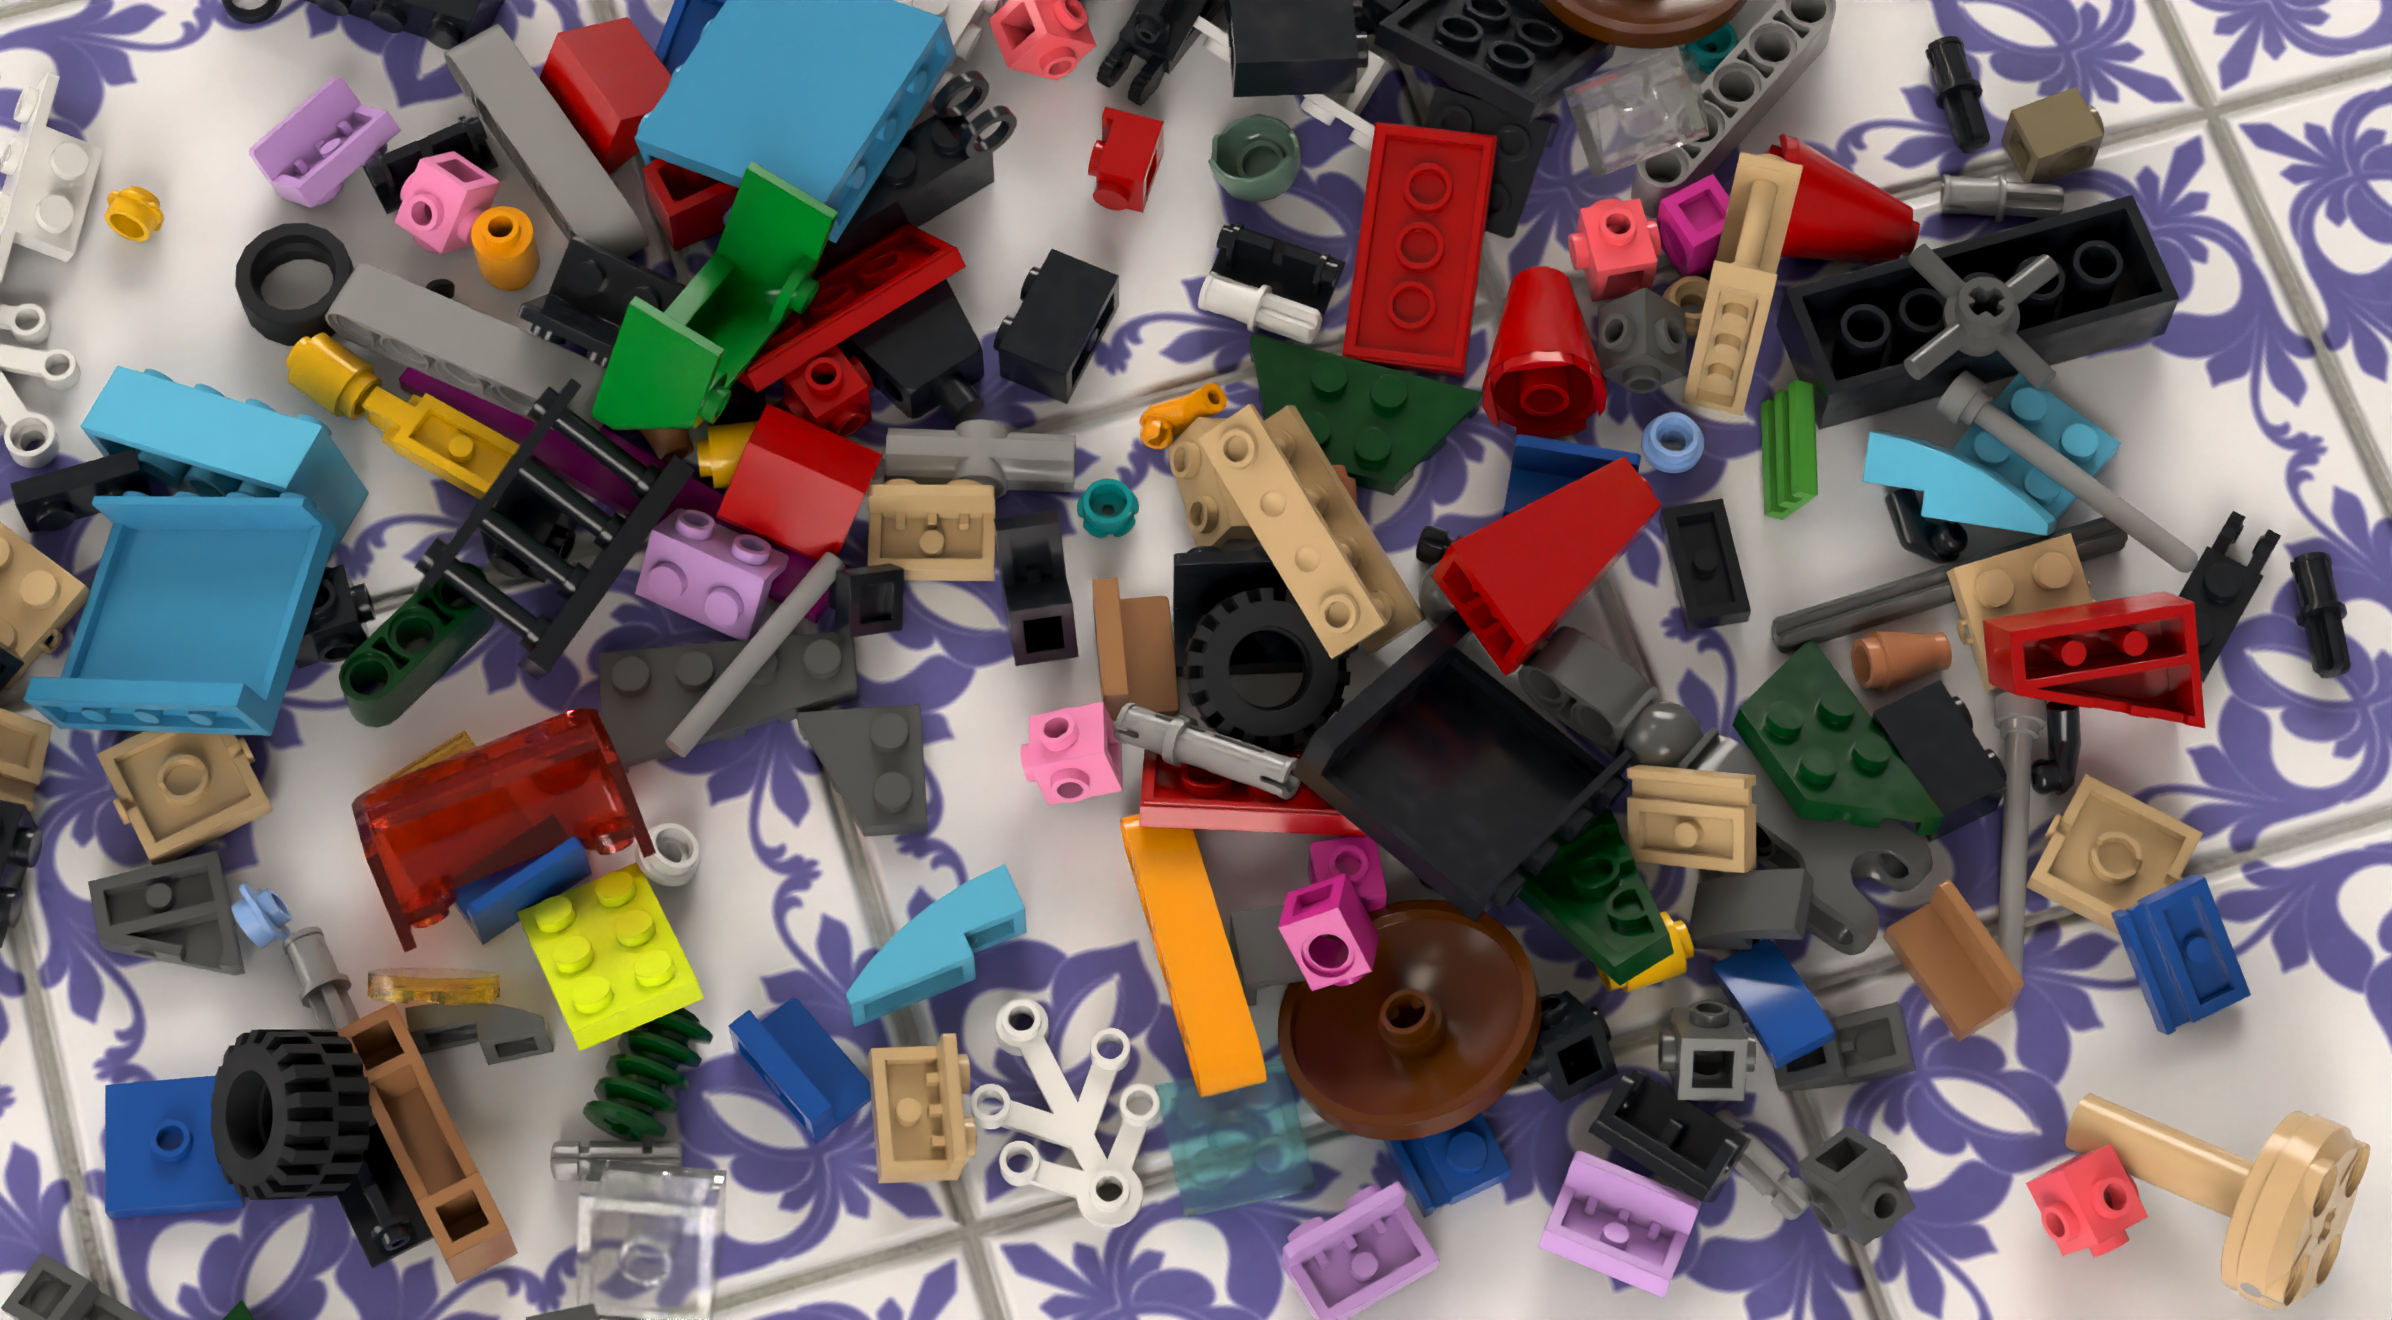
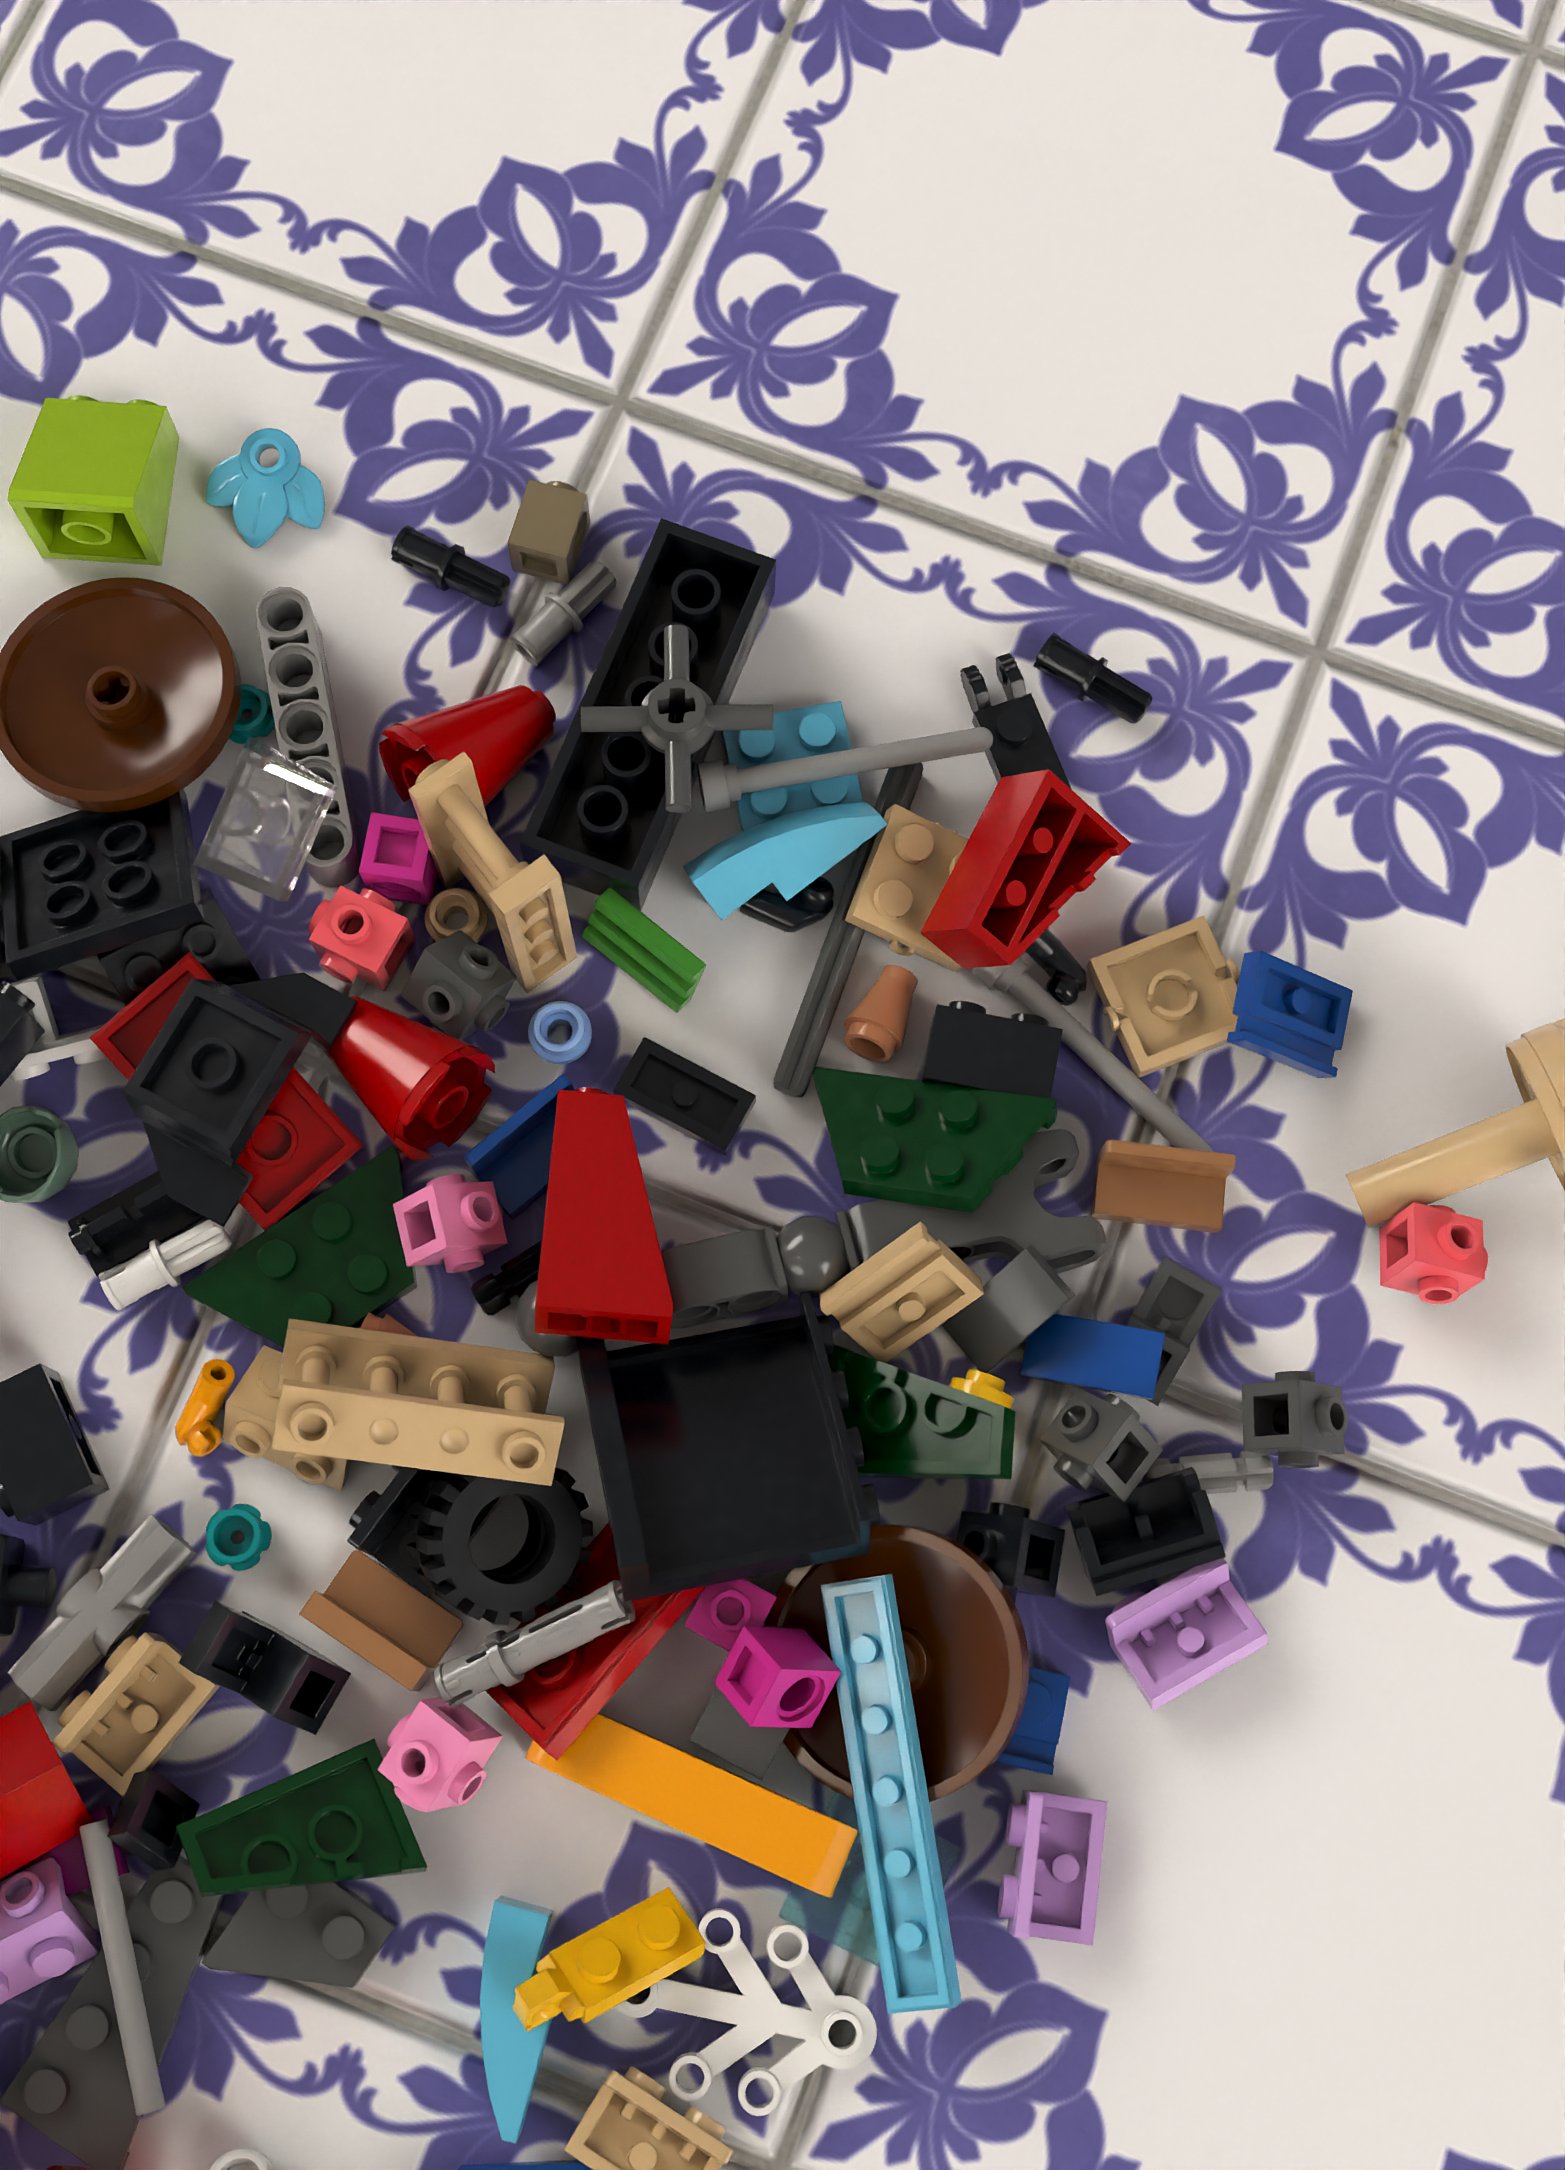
camera: 55 degrees left, 10 degrees up
(946, 705) = (305, 1830): none -> dark green wing
(1026, 978) = (610, 1962): none -> yellow hinge
(1313, 1081) = (891, 1796): none -> medium azure tile
(1427, 217) = (218, 1074): none -> black piece
(1460, 470) = (463, 1219): none -> bright pink brick

